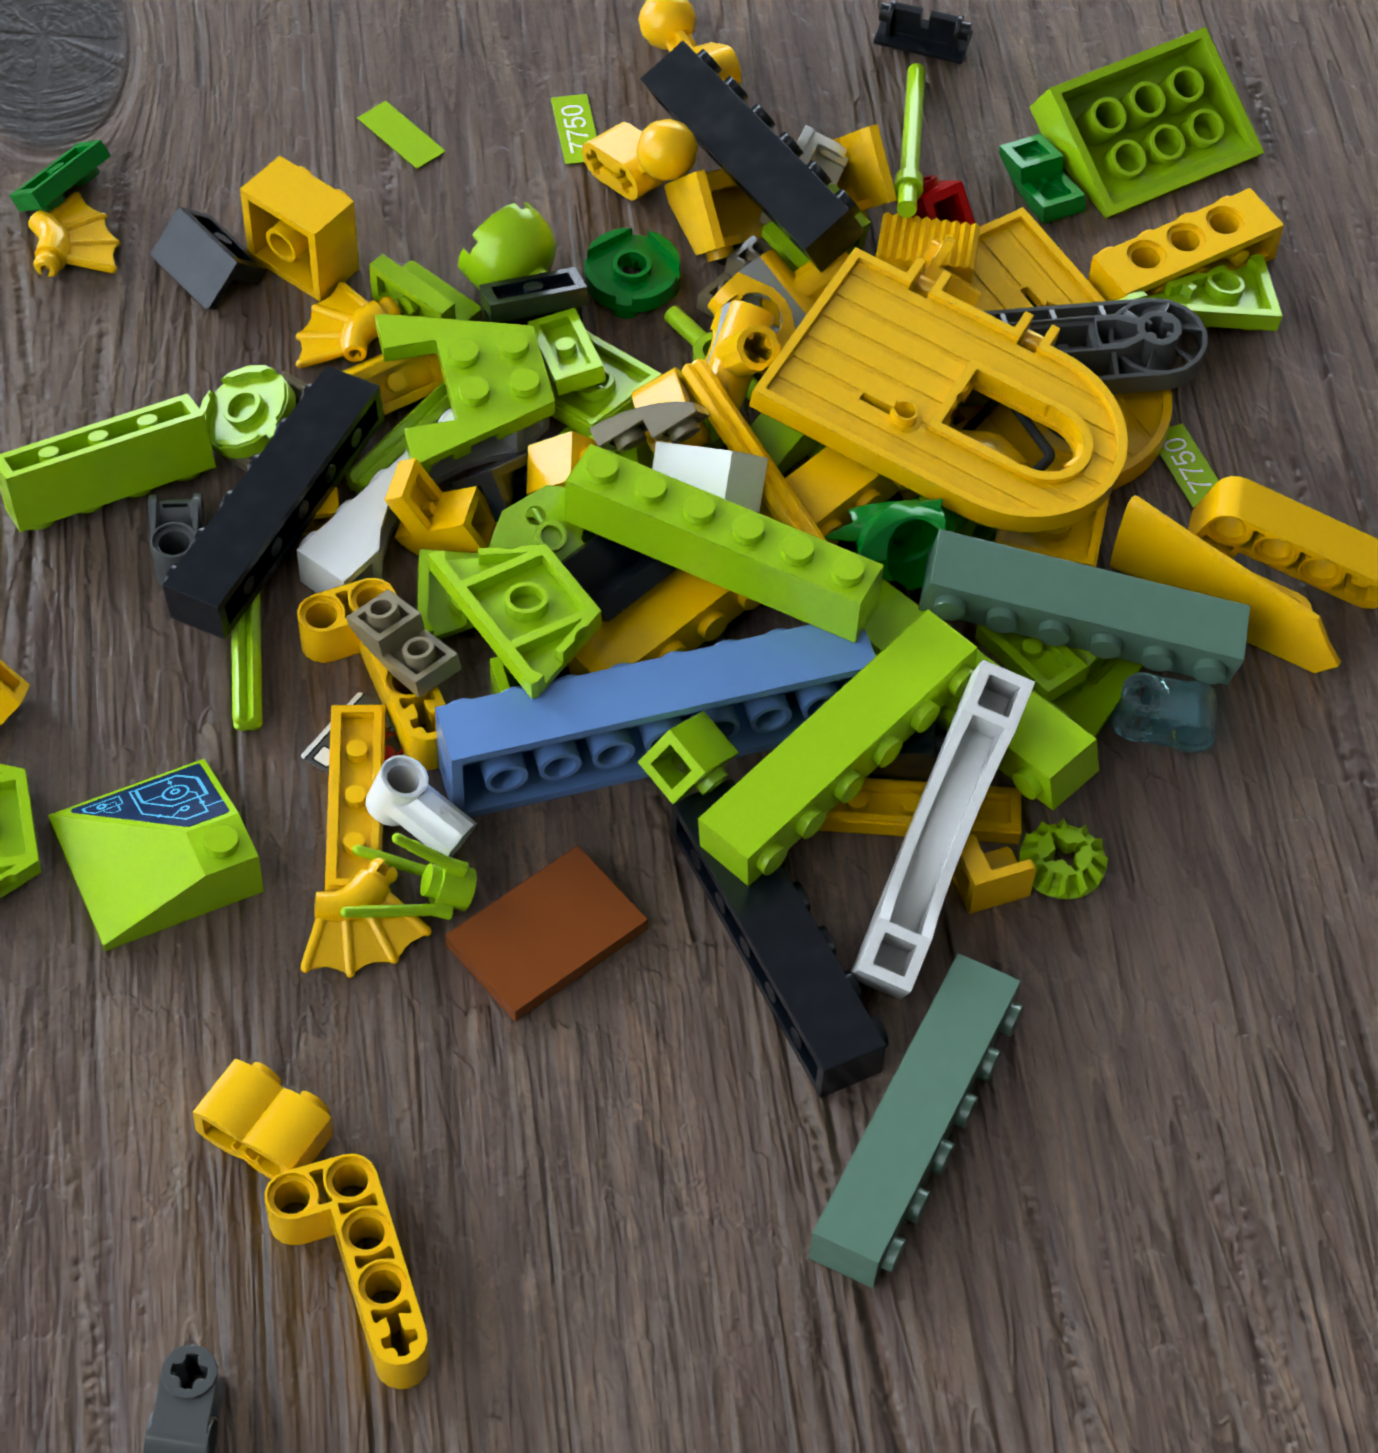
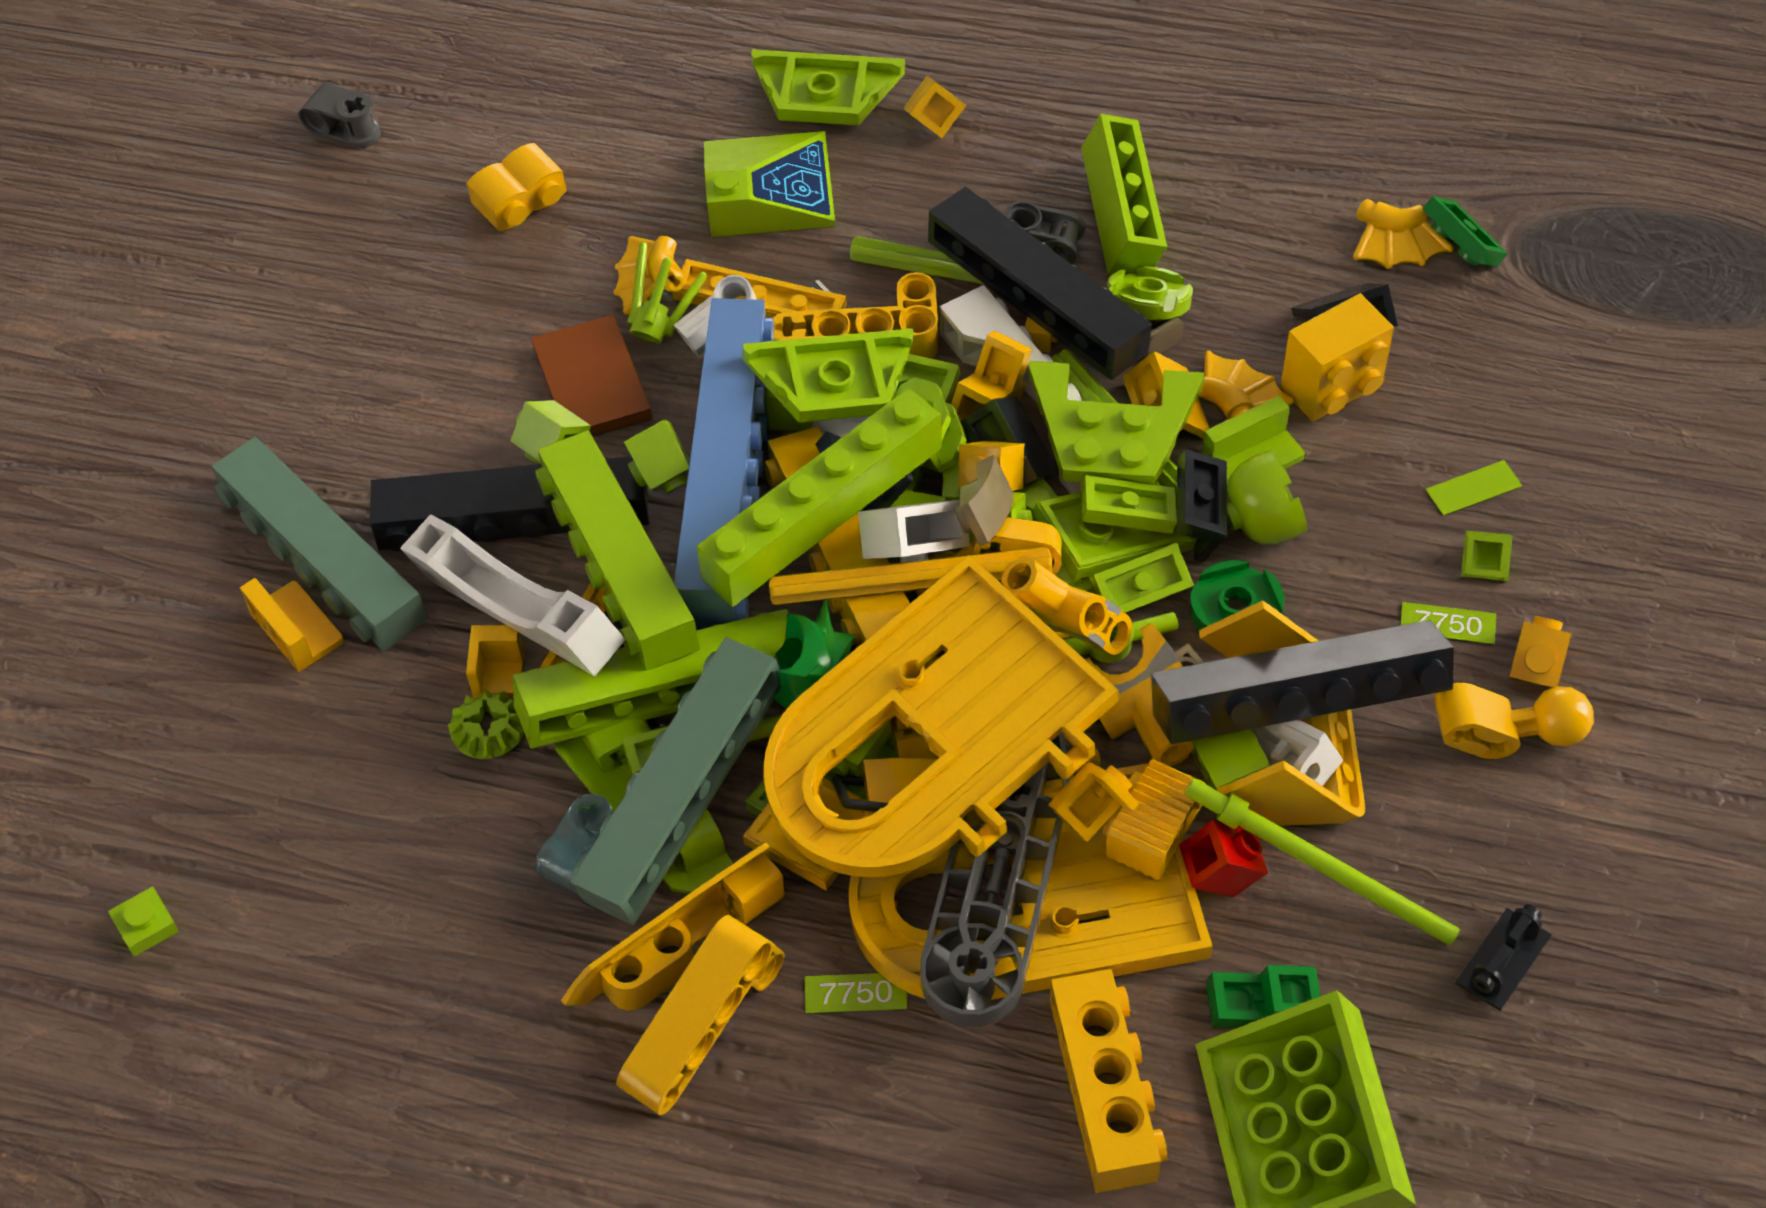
camera: 115 degrees right, 0 degrees up
(366, 1270) = (389, 218): yellow beam -> none
(402, 644) = (866, 312): dark tan slope -> none
(489, 103) = (1486, 556): none -> lime slope
(594, 47) = (1540, 652): none -> yellow bracket
(637, 338) = (1144, 579): none -> lime plate
(641, 160) = (1332, 613): yellow beam -> none
(667, 919) = (544, 424): none -> lime brick
(1027, 1107) = (292, 622): none -> yellow panel
(1227, 297) = (1035, 1097): lime wing -> none

